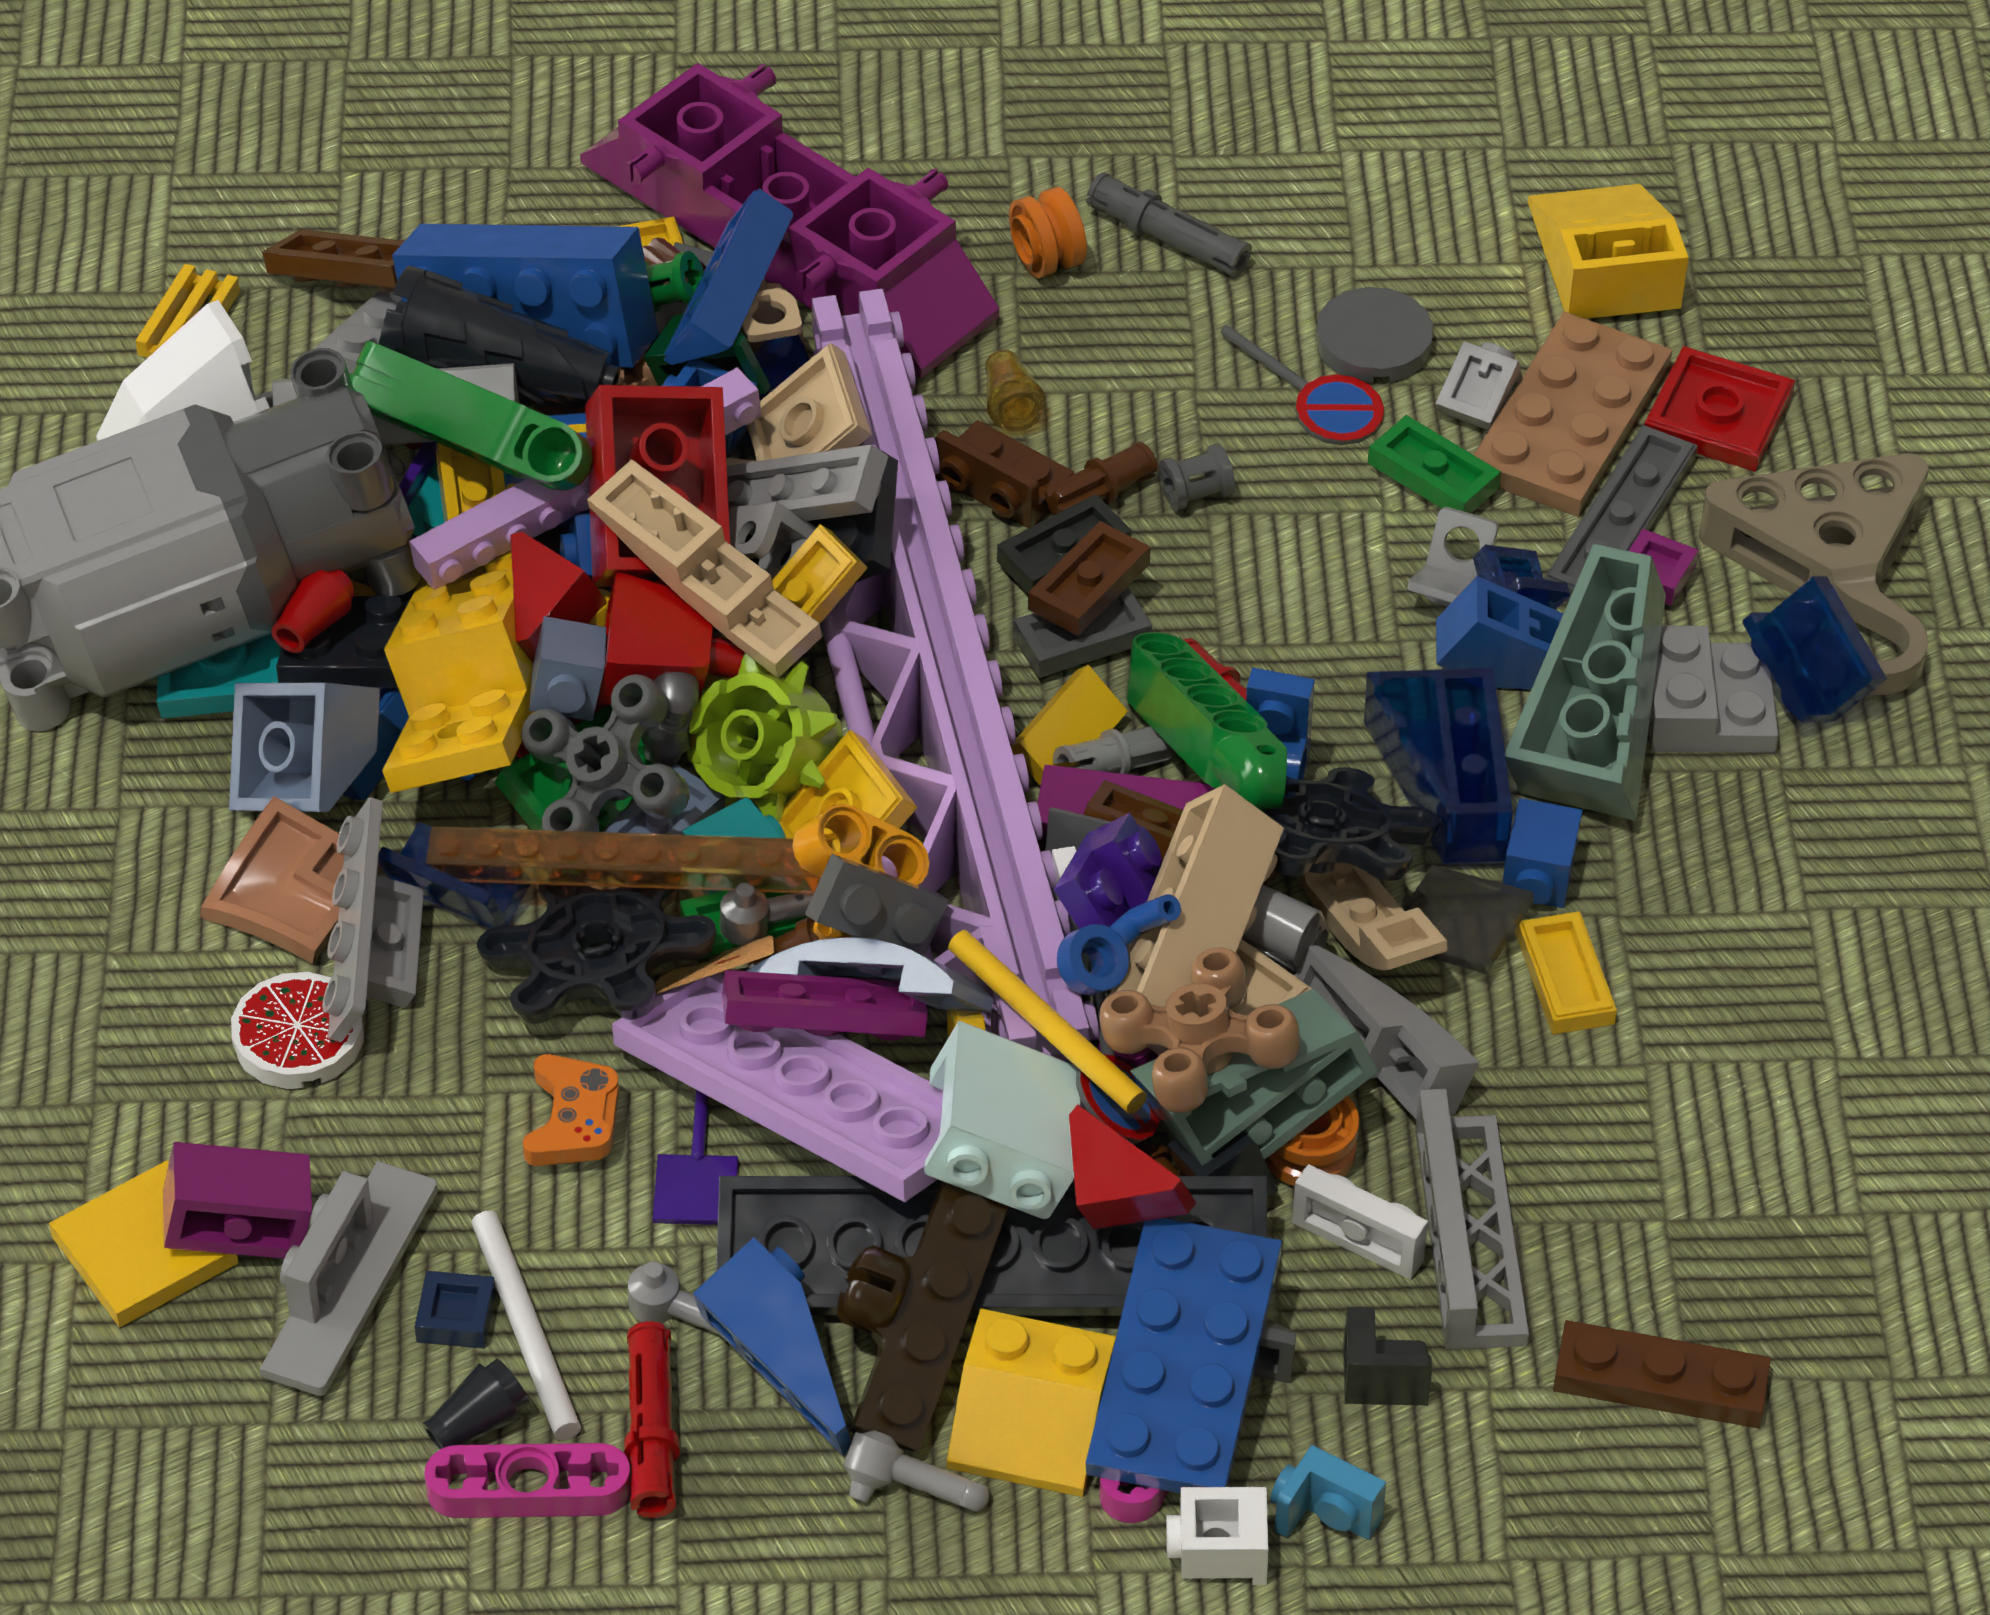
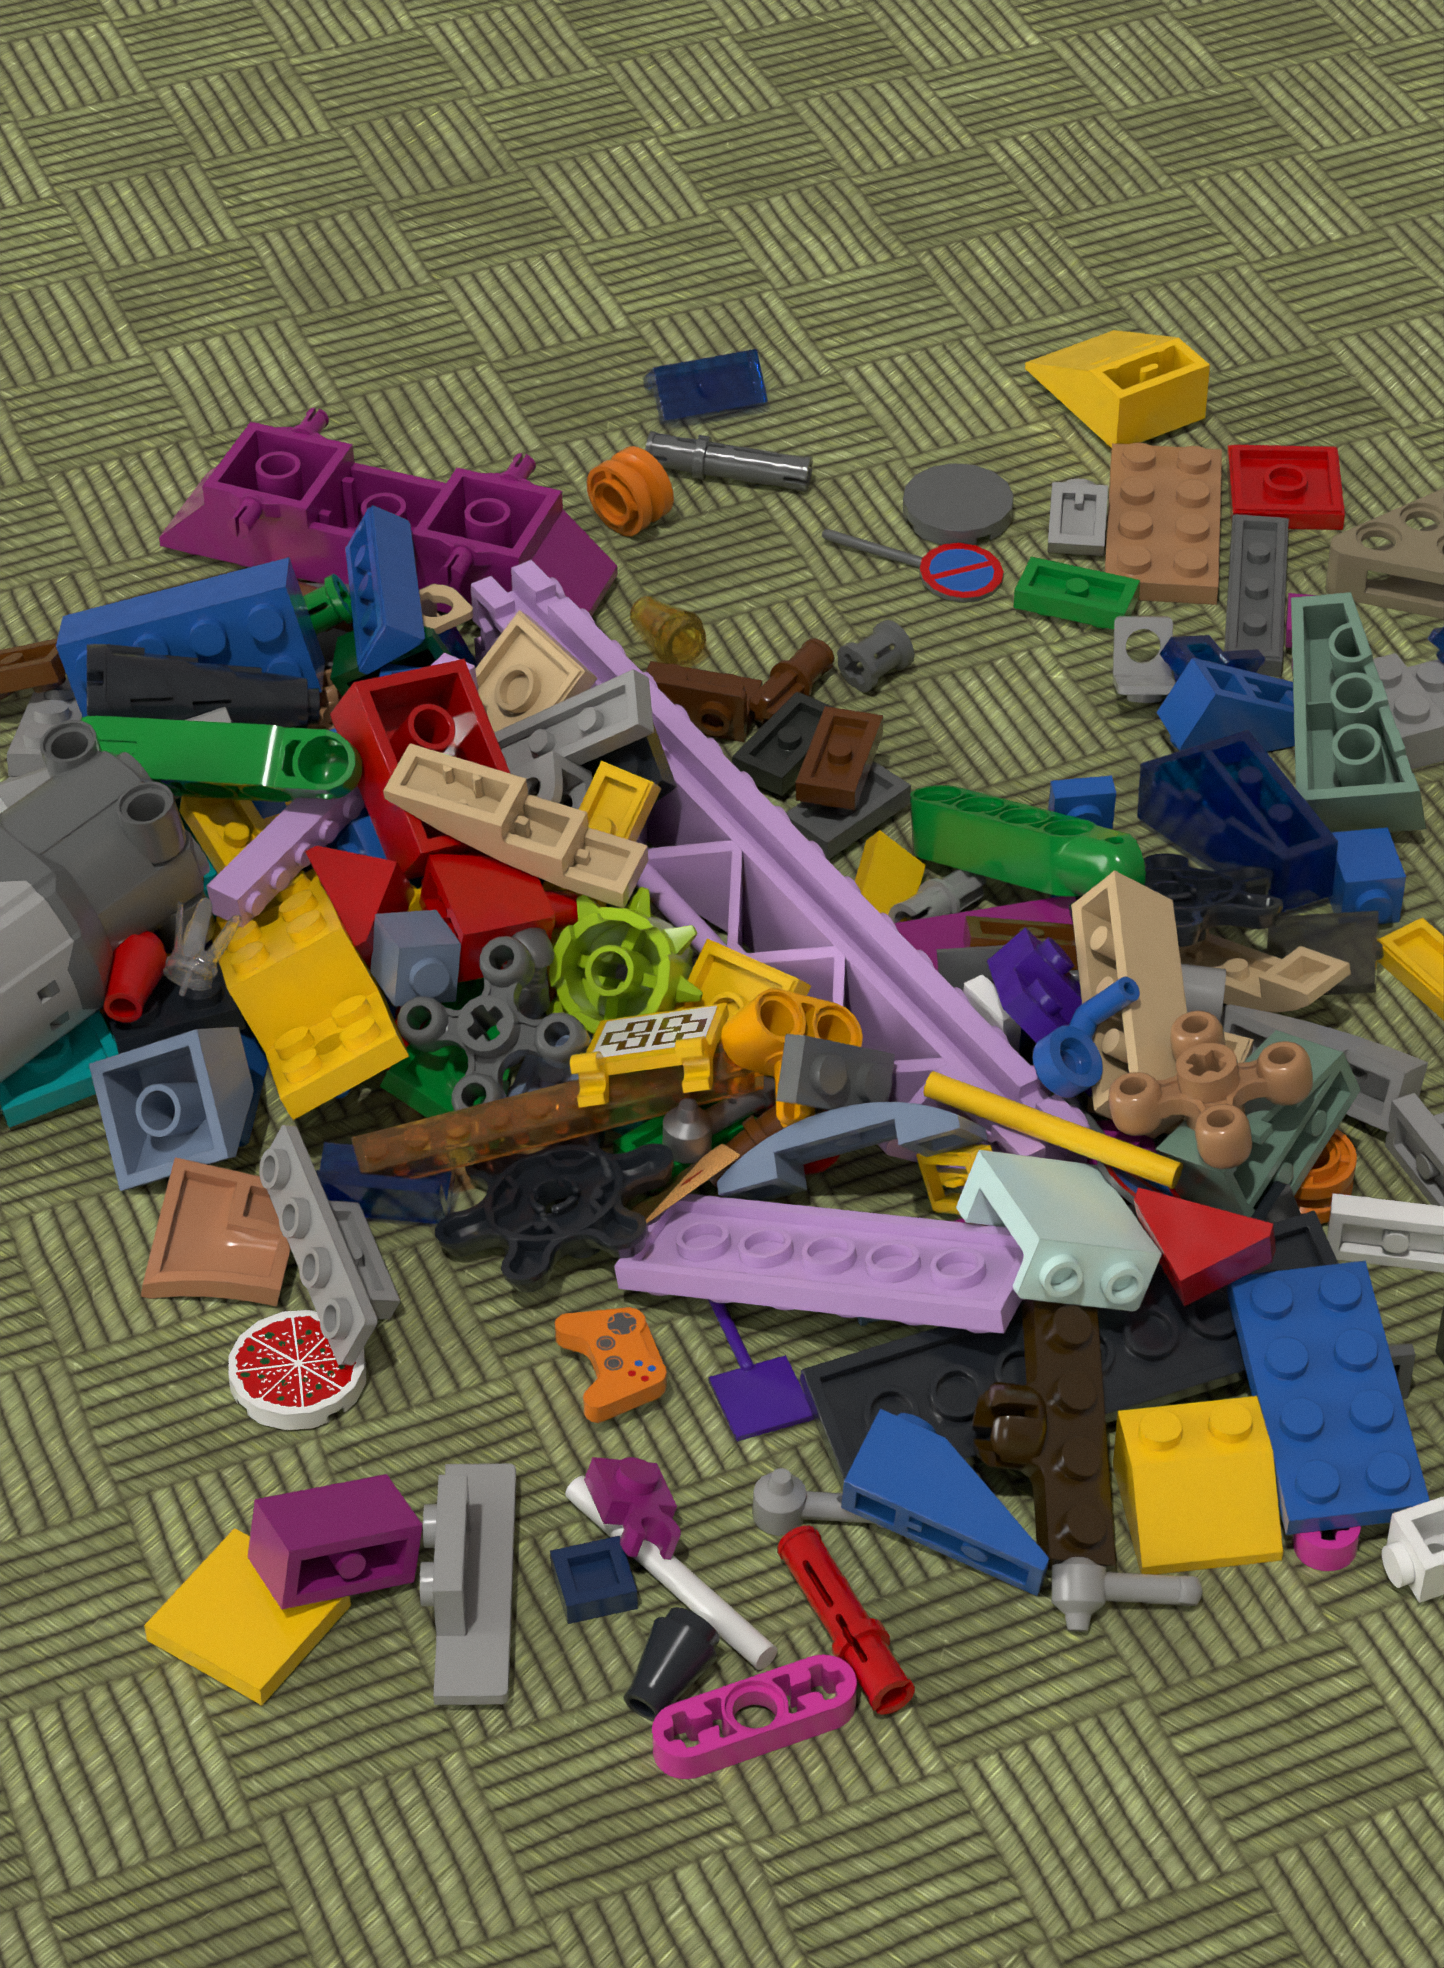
camera: 20 degrees left, 5 degrees down
(364, 609) = (189, 962): none -> clear piece
(522, 1249) = (636, 1497): none -> magenta plate
(733, 818) = (648, 1043): none -> yellow flag
(821, 1005) = (817, 1185): magenta plate -> none
(1190, 136) = (707, 386): none -> clear blue panel

